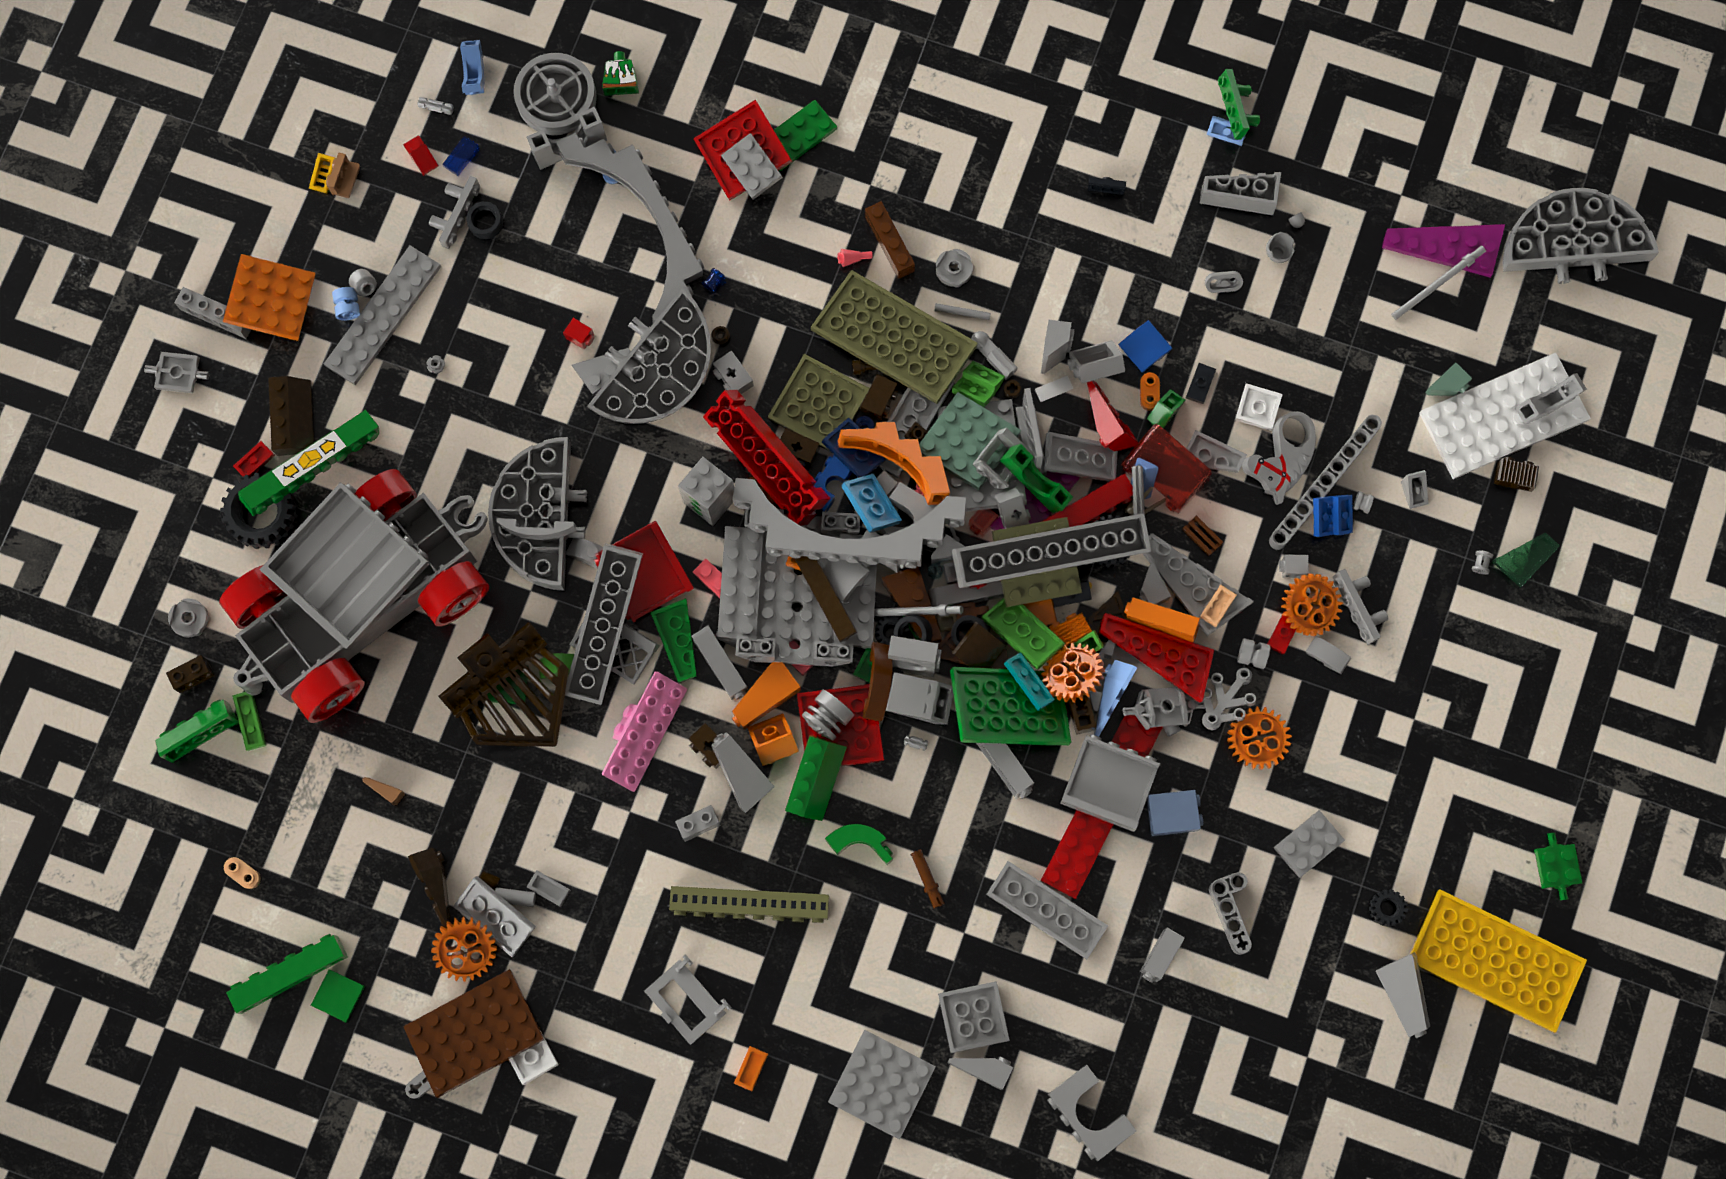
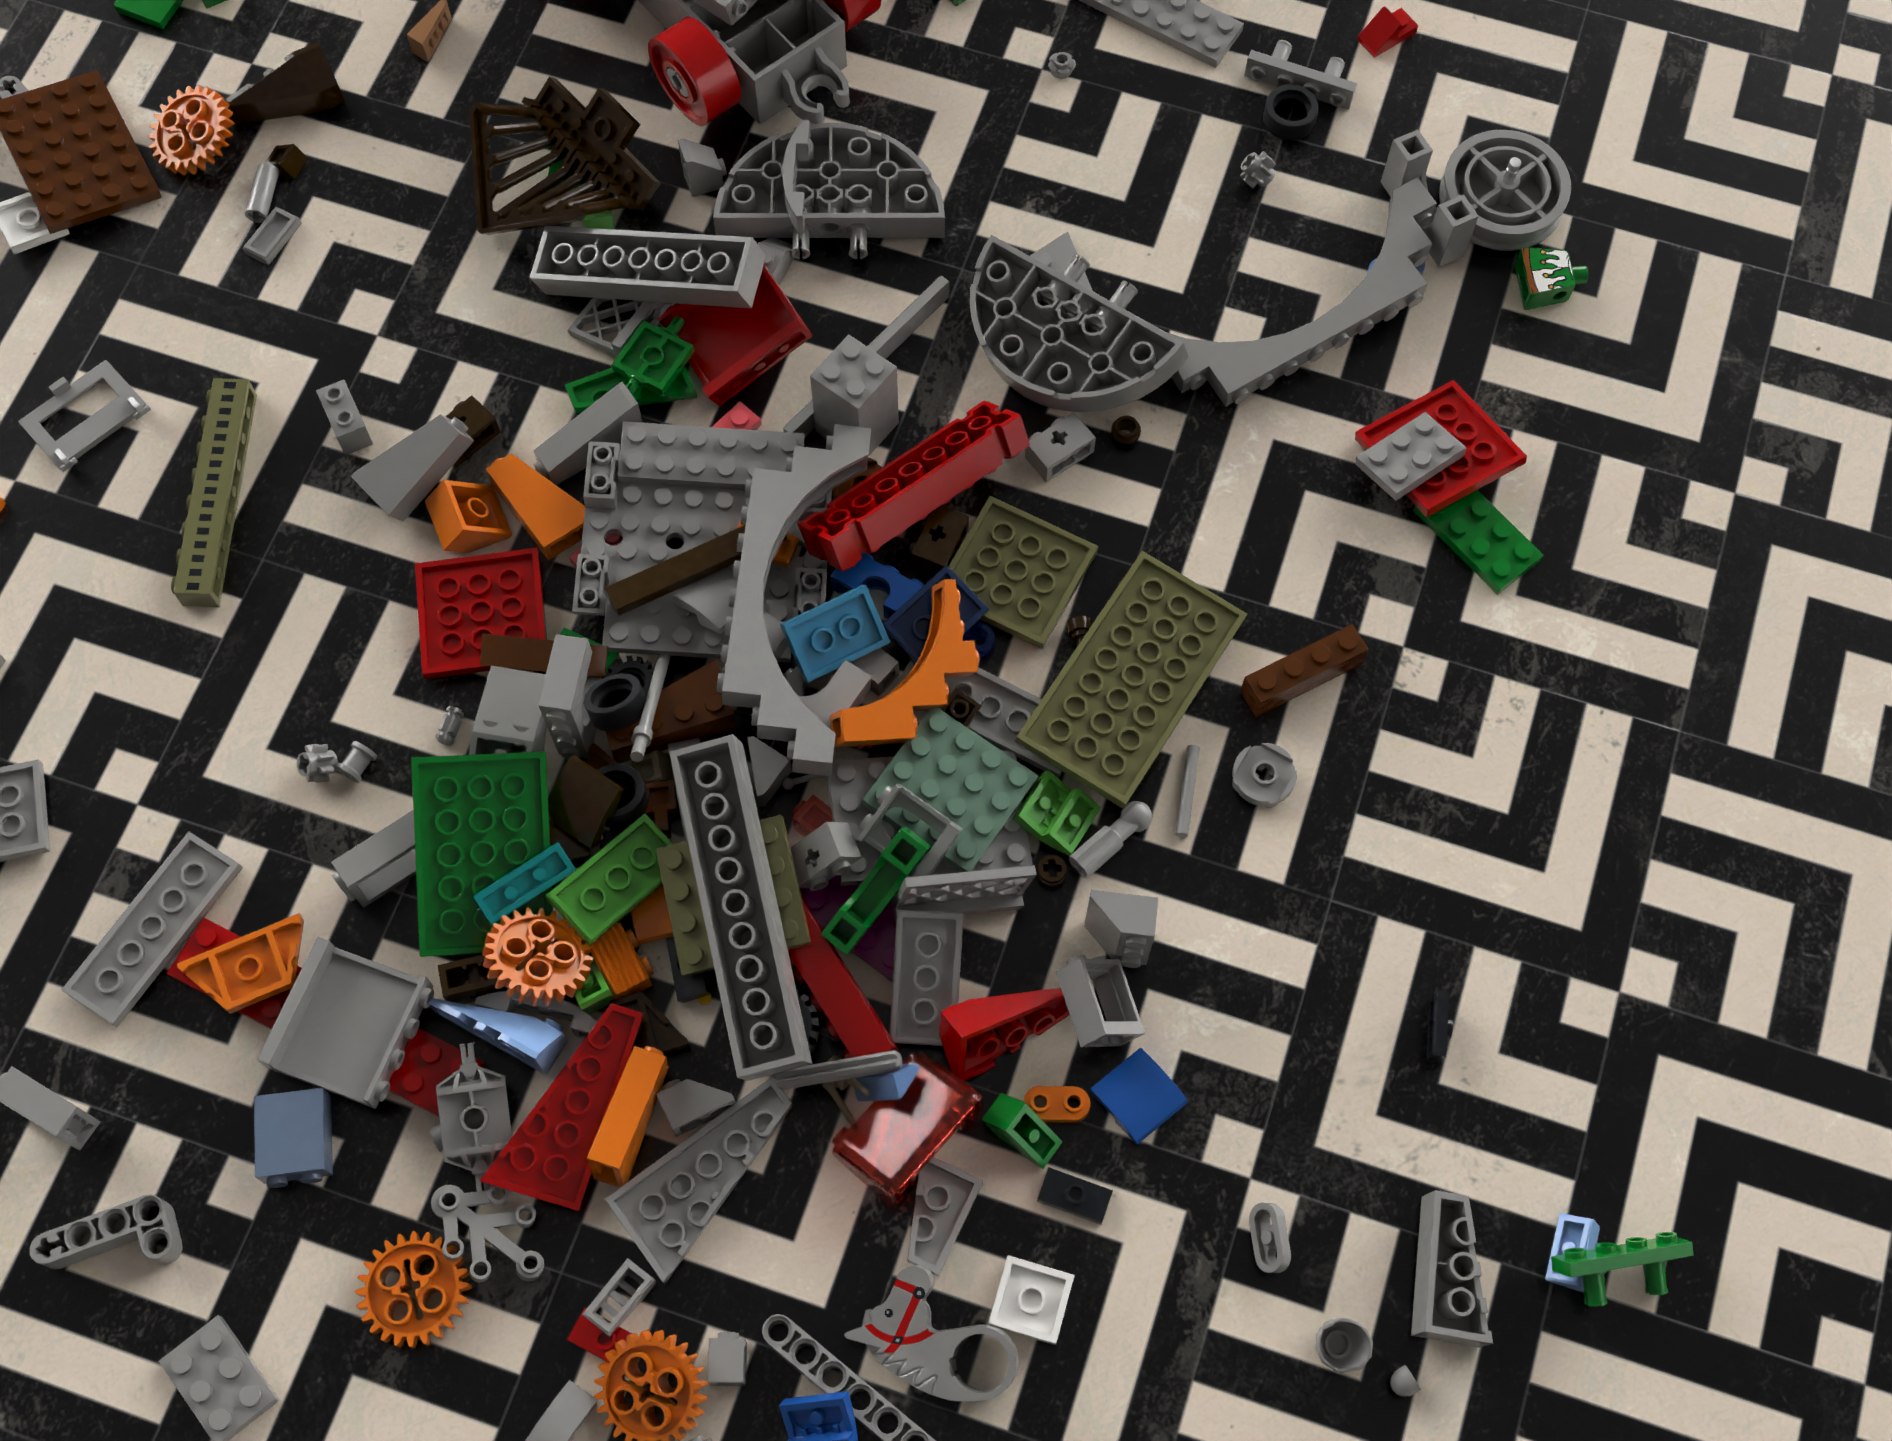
camera: 85 degrees right, 10 degrees down
(435, 105) = (1468, 46): light grey axle -> none
(461, 156) = (1391, 81): clear blue tile -> none
(473, 67) = (1531, 87): medium blue arch -> none
(504, 921) = (235, 167): light grey tile -> none
(514, 598) = (701, 167): none -> light grey slope
(531, 243) = (1258, 169): none -> light grey gear
(579, 333) = (1117, 237): red brick -> none
(643, 730) = (492, 342): bright pink bracket -> none
(664, 623) = (653, 357): none -> green plate
(666, 491) = (887, 341): none -> light grey tile
(713, 280) = (1216, 416): clear blue bush -> none
(815, 778) = (396, 570): green slope -> none
(827, 715) = (488, 578): light grey wheel -> none
(849, 257) = (1270, 610): coral cone -> none
(859, 834) = (303, 648): green arch -> none
(879, 398) = (1027, 659): dark brown brick -> none
(931, 887) = (225, 744): reddish brown pin -> none
(940, 796) = (356, 761): none -> light grey bush
(942, 819) = (317, 763): none -> light grey gear
(1054, 388) = (1055, 939): white sticker -> none
(1075, 844) = (249, 966): none -> orange wing
(1191, 524) = (780, 1186): reddish brown tile -> none
(1218, 606) = (652, 1213): light nougat plate -> none
(1253, 653) = (575, 1271): light grey wheel -> none
(1261, 615) = (637, 1274): none -> light grey slope

